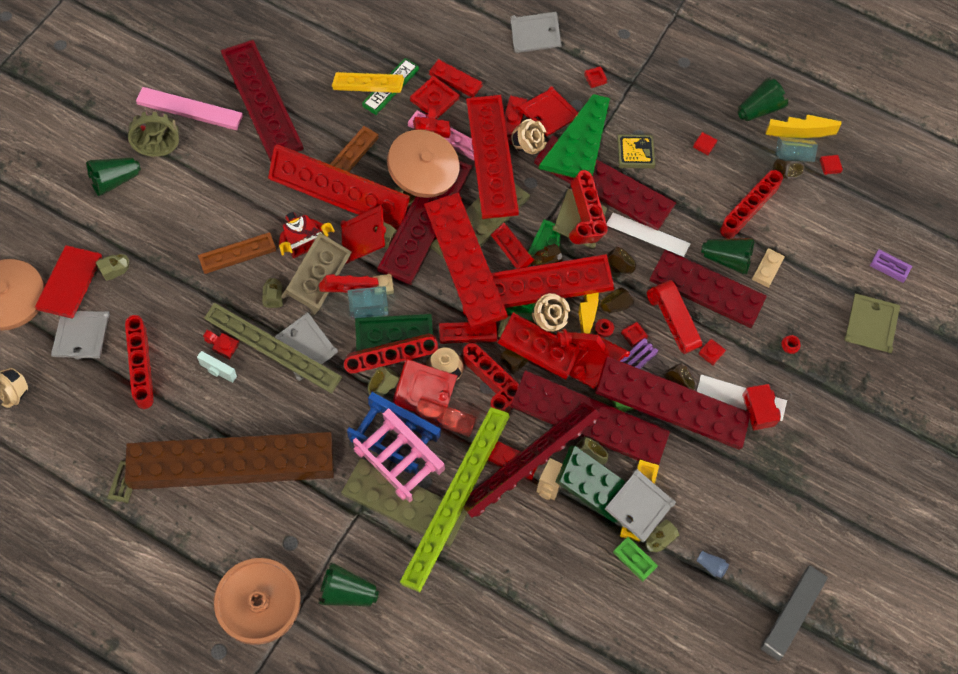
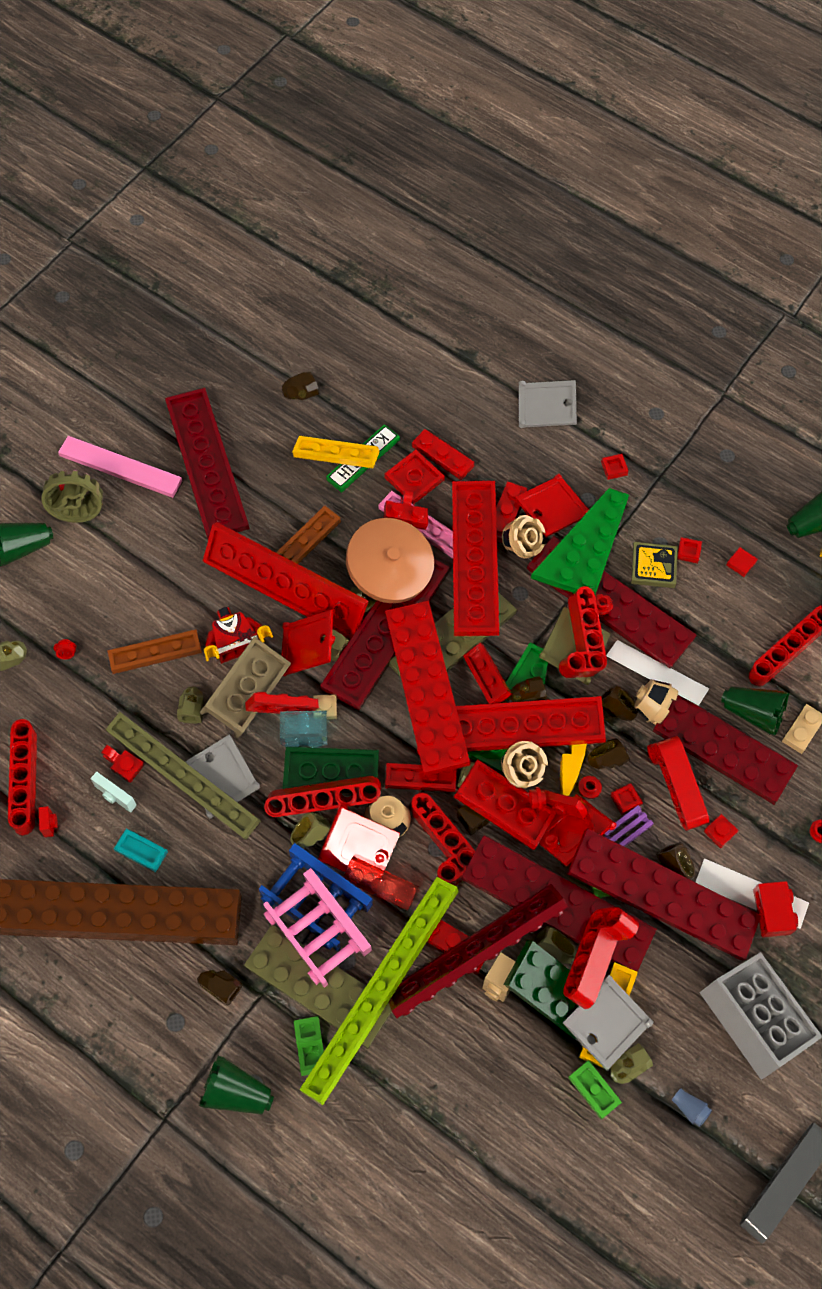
camera: 10 degrees right, 0 degrees up
(161, 257) = (65, 649): none -> red plate
(165, 395) = (47, 821): none -> red plate
(244, 411) = (140, 850): none -> teal tile
(257, 601) = (125, 1094): nougat dish -> none
(324, 509) = (220, 985): none -> dark brown rock
(332, 33) = (300, 387): none -> dark brown rock
(401, 547) = (308, 1043): none -> bright green slope
(603, 185) = (607, 607): none -> red plate
(625, 450) = (595, 952): none -> red beam
(649, 255) = (654, 700): none -> tan cone
(662, 137) = (689, 550): none -> red tile
(758, 488) = (760, 1015): none -> light grey slope

